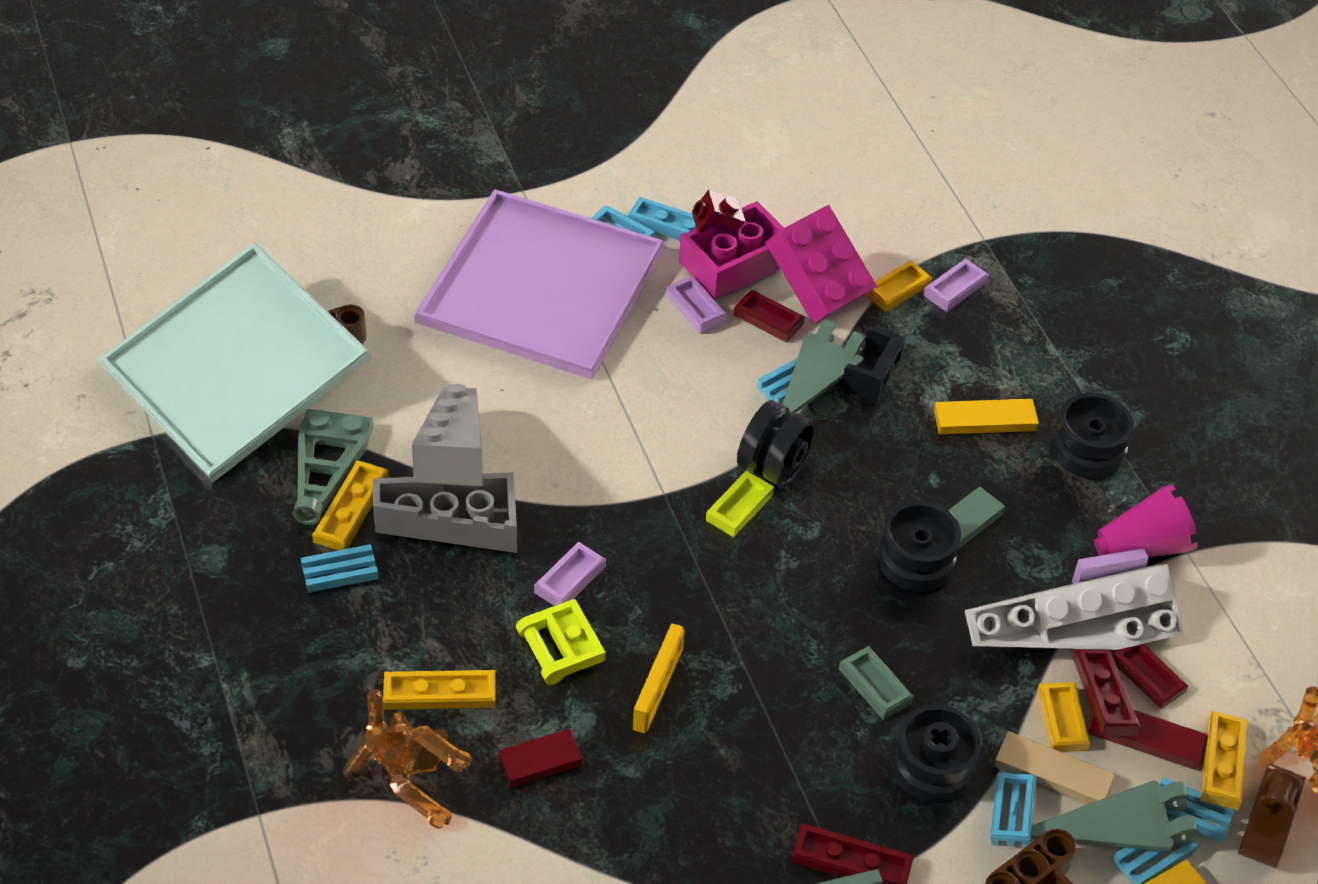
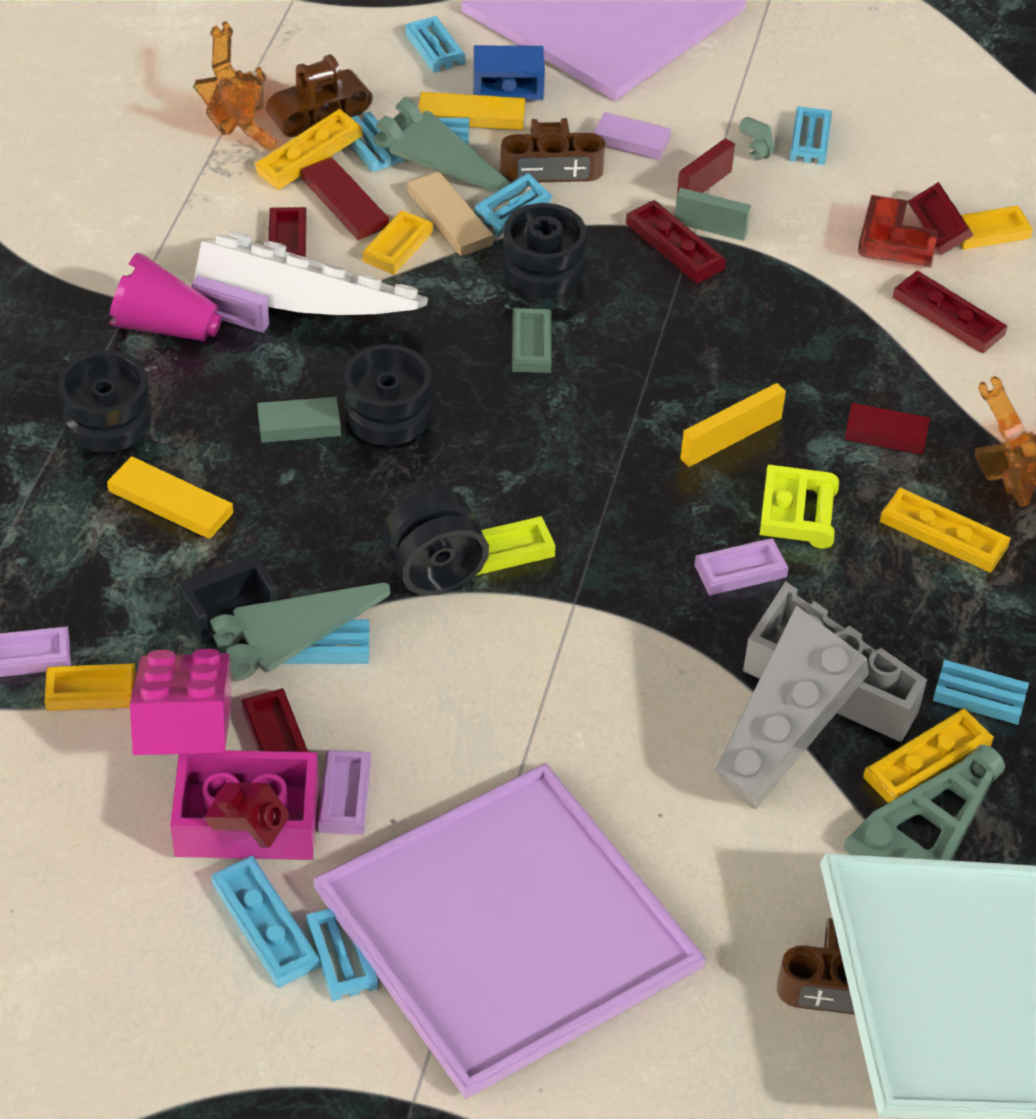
camera: 145 degrees left, 0 degrees up
(1106, 693) = (351, 223): dark red tile -> none

